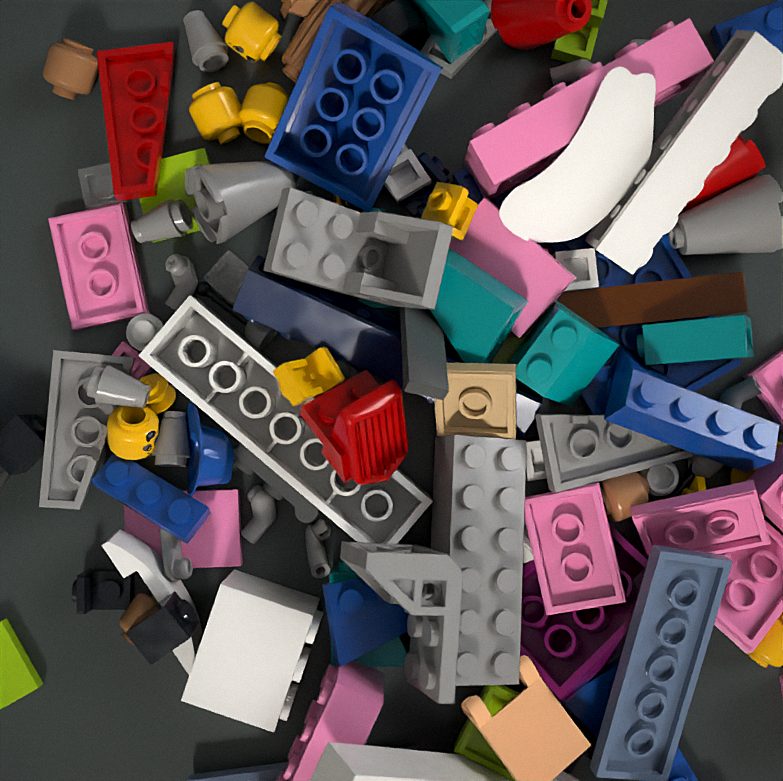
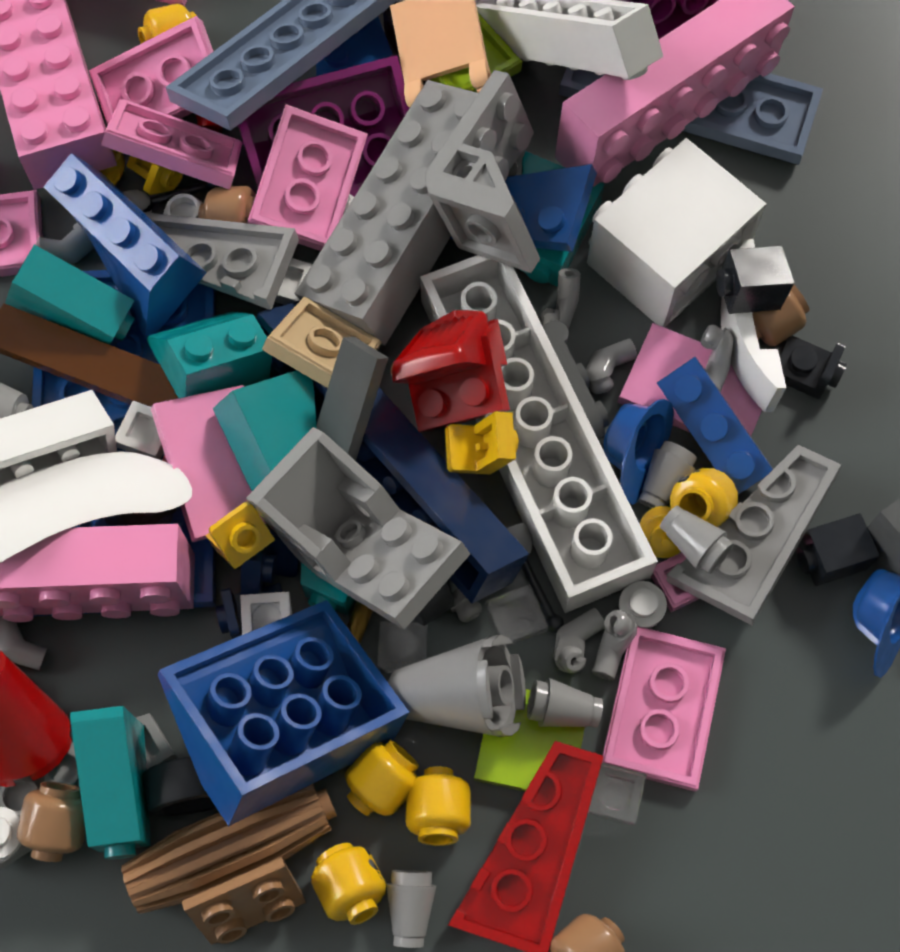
camera: 150 degrees left, 20 degrees down
(152, 295) = (617, 636): none -> light grey arm

